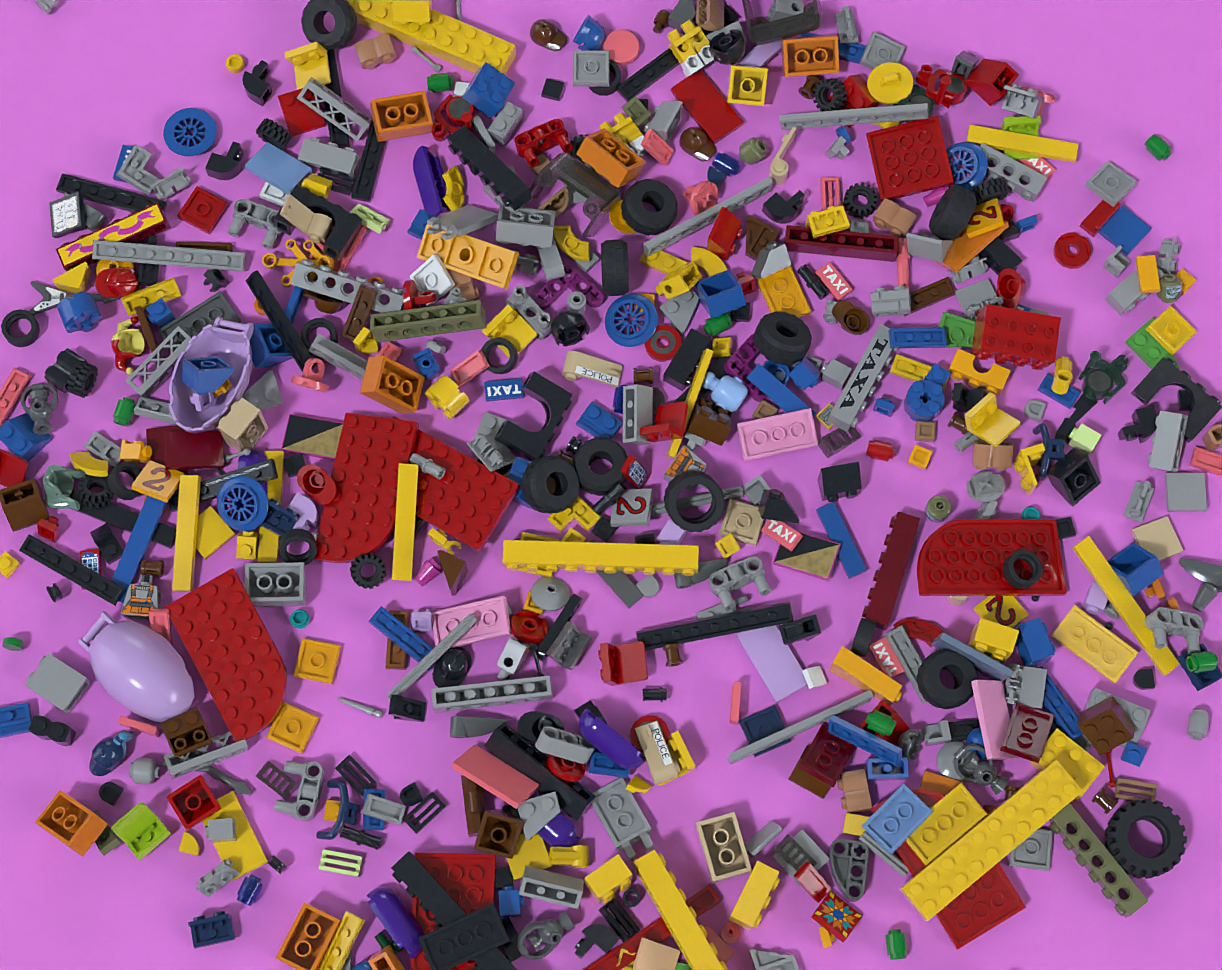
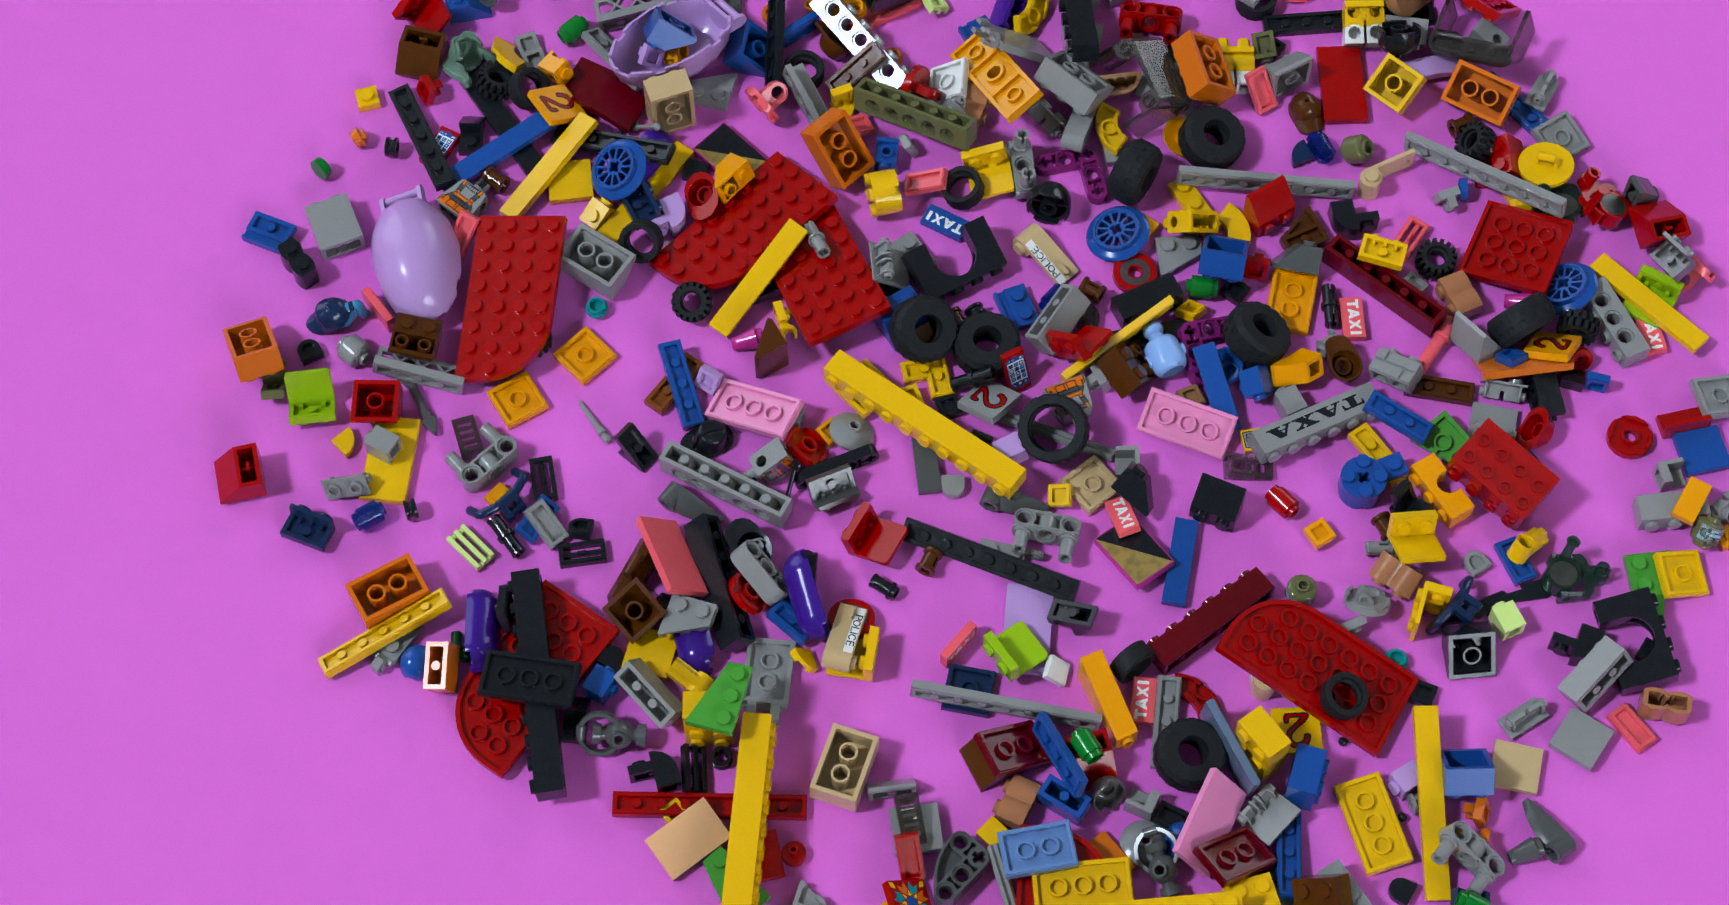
camera: 35 degrees right, 10 degrees down
(23, 600) = (359, 137): none -> orange plate
(131, 924) = (240, 474): none -> red slope
(329, 455) = (732, 176): none -> light orange slope
(402, 895) = (502, 608): none -> black plate
(433, 656) = (697, 414): light grey axle -> none
(577, 302) = (1075, 184): light grey brick -> none
(619, 866) = (723, 700): none -> bright green wing
(701, 197) = (1273, 159): coral tile -> none
(755, 896) = (841, 830): yellow brick -> none
(779, 682) = (1014, 650): none -> lime bracket
(825, 344) = (1297, 368): none -> light orange slope
(884, 406) = (1316, 463): blue plate -> none
(925, 431) = (1343, 514): medium nougat tile -> none
(962, 244) = (1511, 357): none -> blue tile

